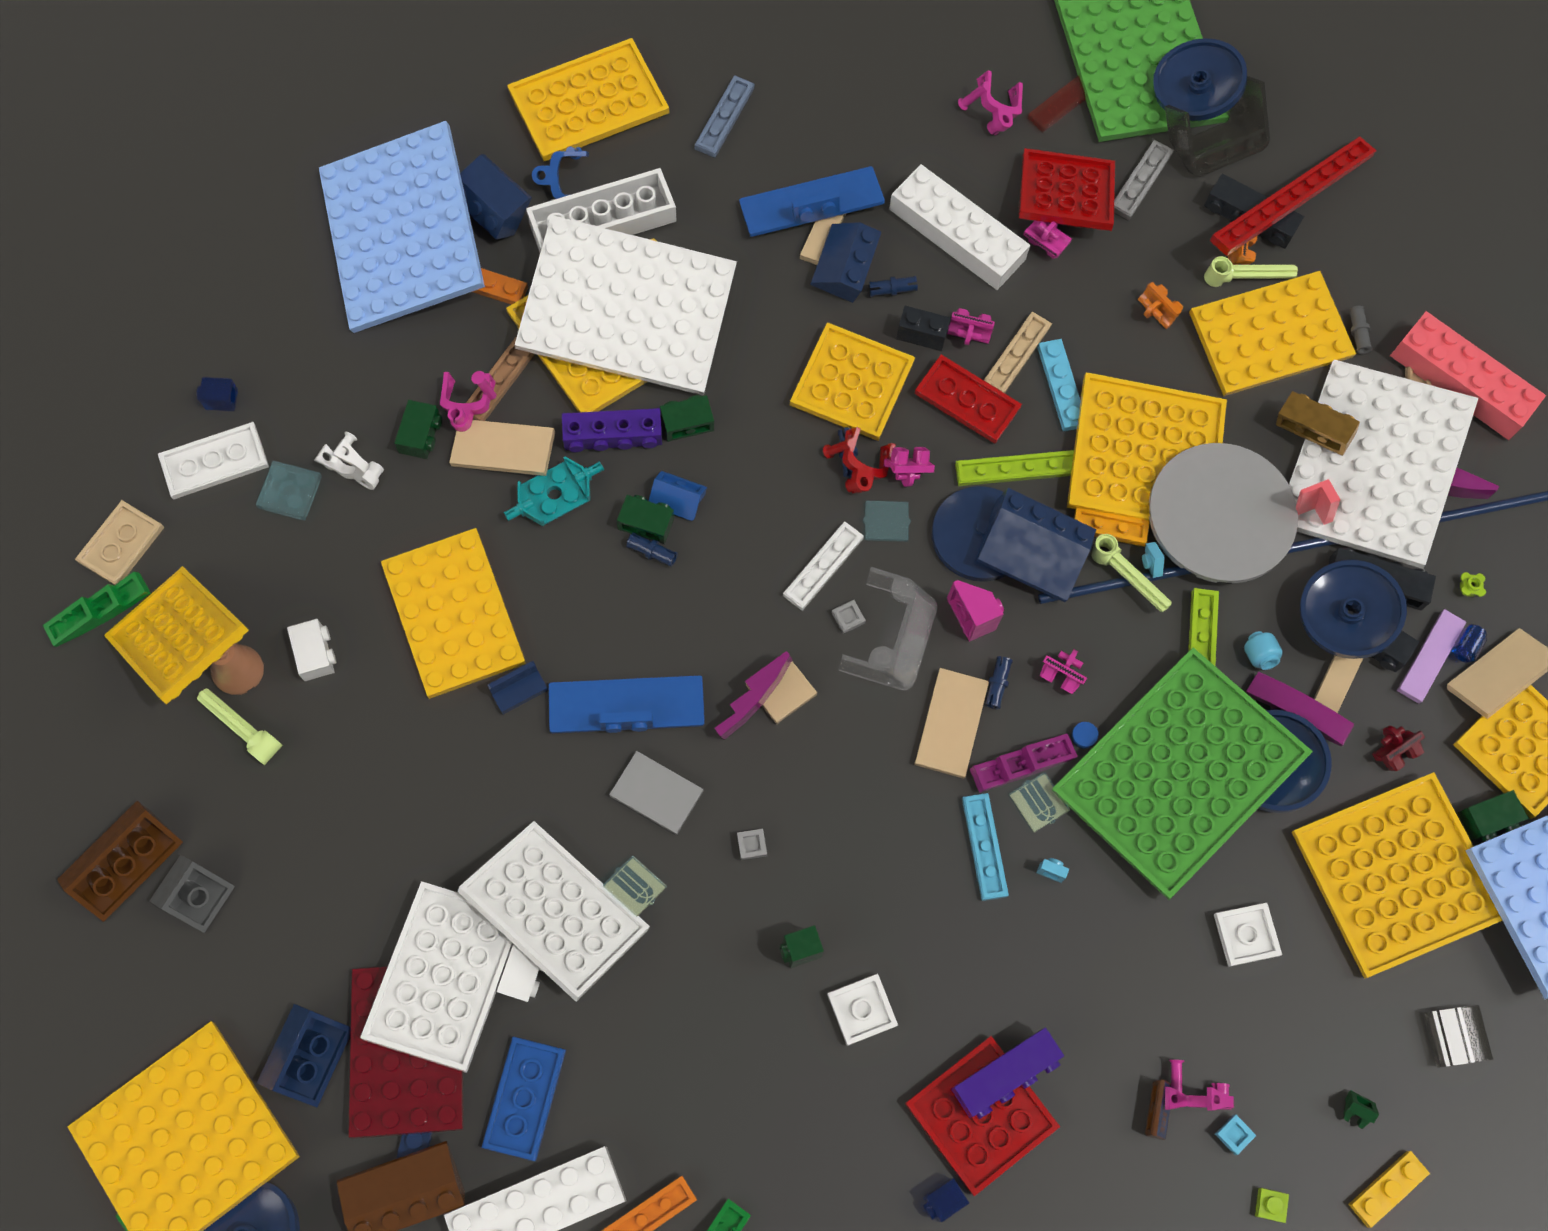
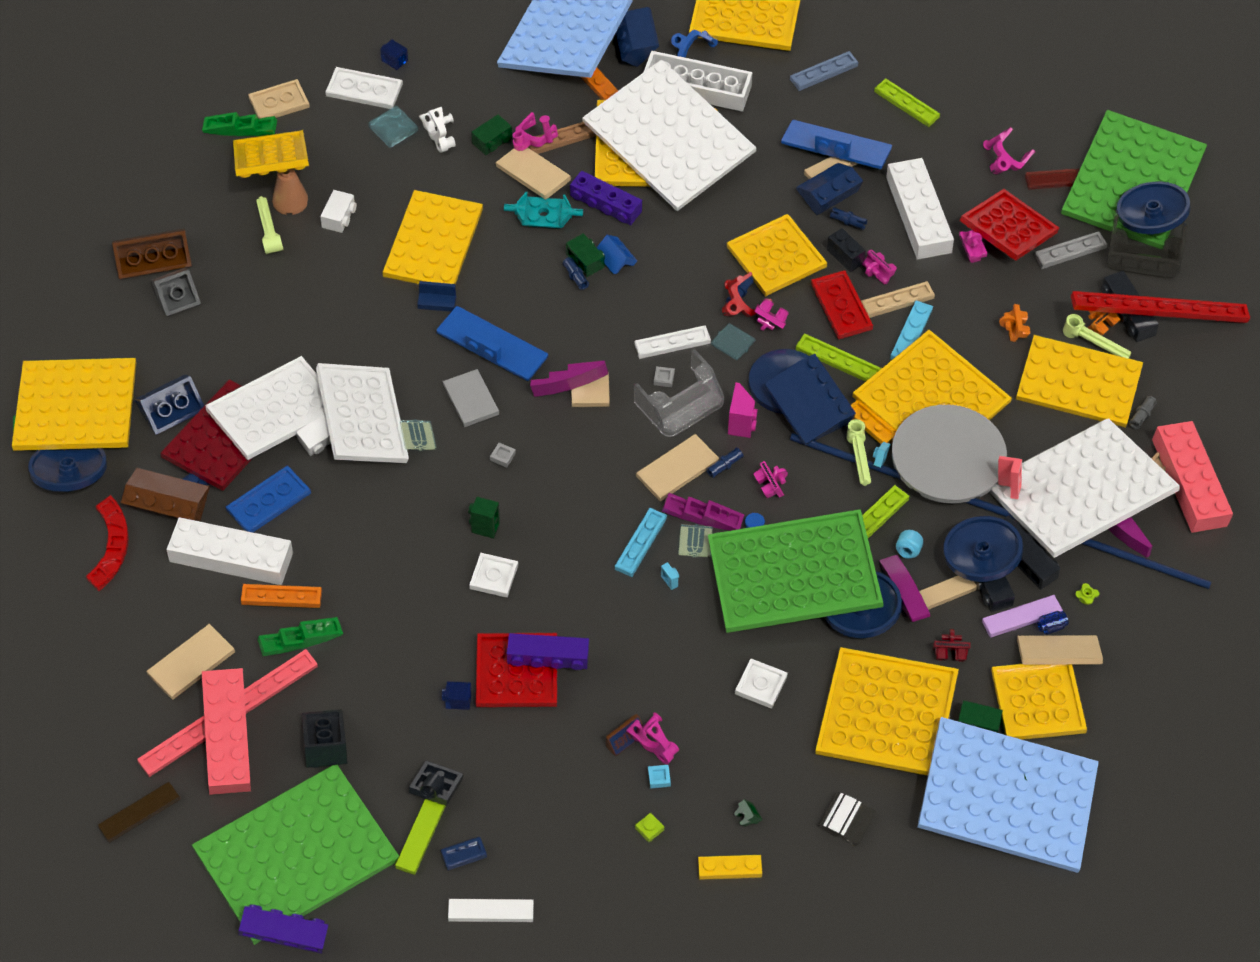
camera: 40 degrees right, 15 degrees down
(687, 417) = (656, 217): dark green brick -> none
(841, 102) = (907, 102): none -> lime tile
(1317, 423) = (1057, 440): pearl gold brick -> none

